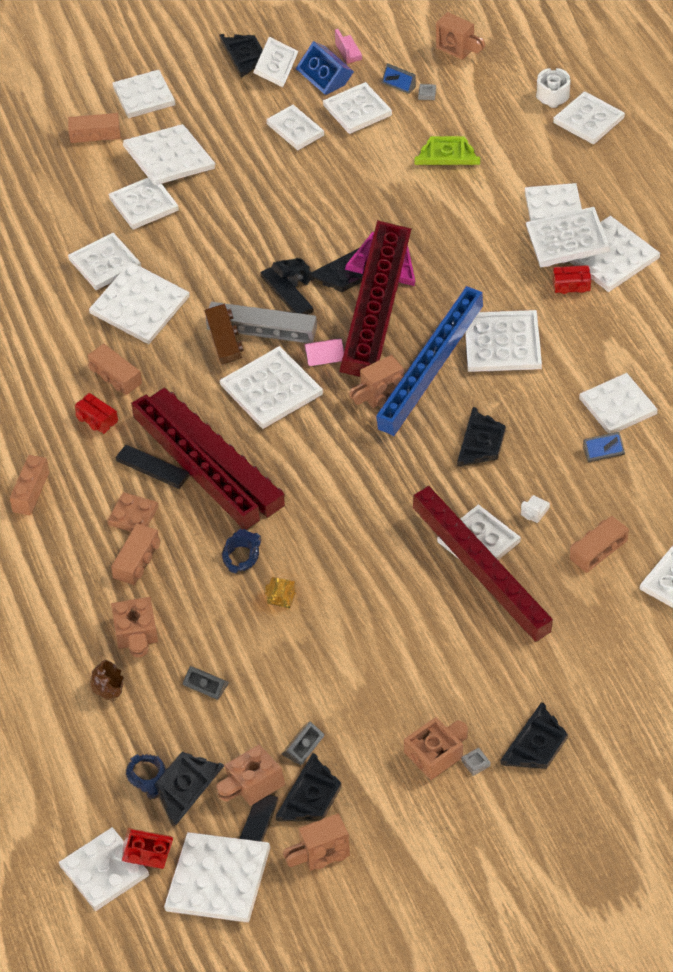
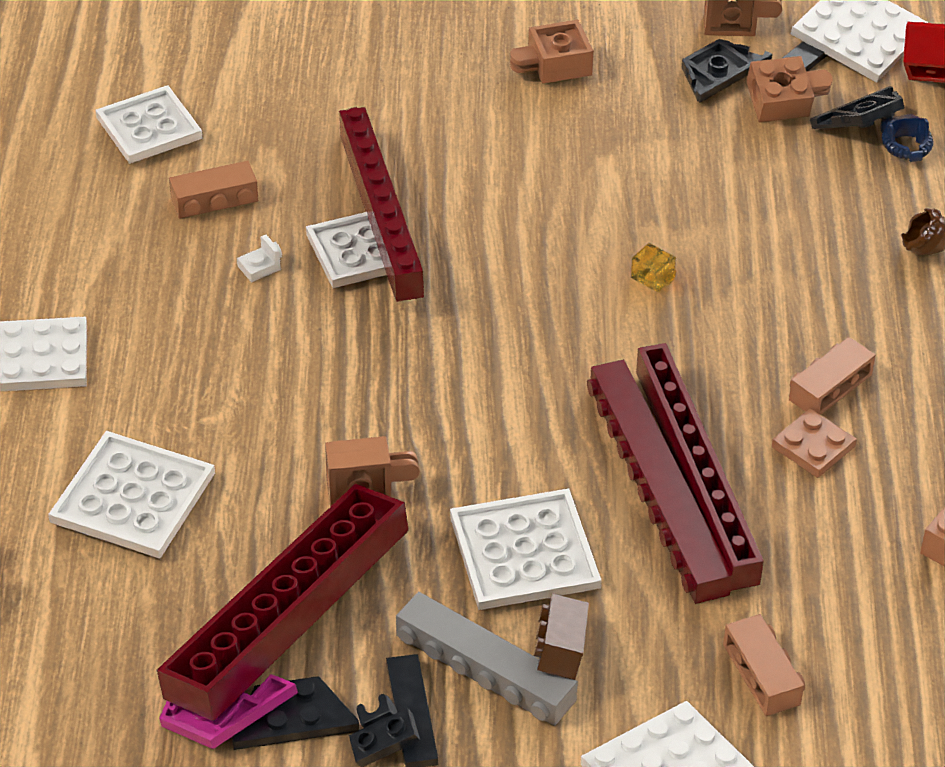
camera: 160 degrees left, 5 degrees down
(96, 413) = (819, 600): red brick -> none
(134, 627) = (865, 288): nougat brick -> none
(152, 466) = (764, 501): black tile -> none
(205, 682) = (794, 213): dark grey slope -> none
(246, 539) = (680, 344): dark blue piece -> none
(303, 743) = (706, 119): dark grey slope -> none
(324, 352) = (405, 580): bright pink panel -> none
(429, 361) = (254, 477): blue brick -> none
(475, 761) = (513, 40): light grey tile -> none
(481, 440) = (265, 366): black wing -> none
(536, 742) = (437, 34): black wing -> none
(603, 447) = (110, 304): slope -> none

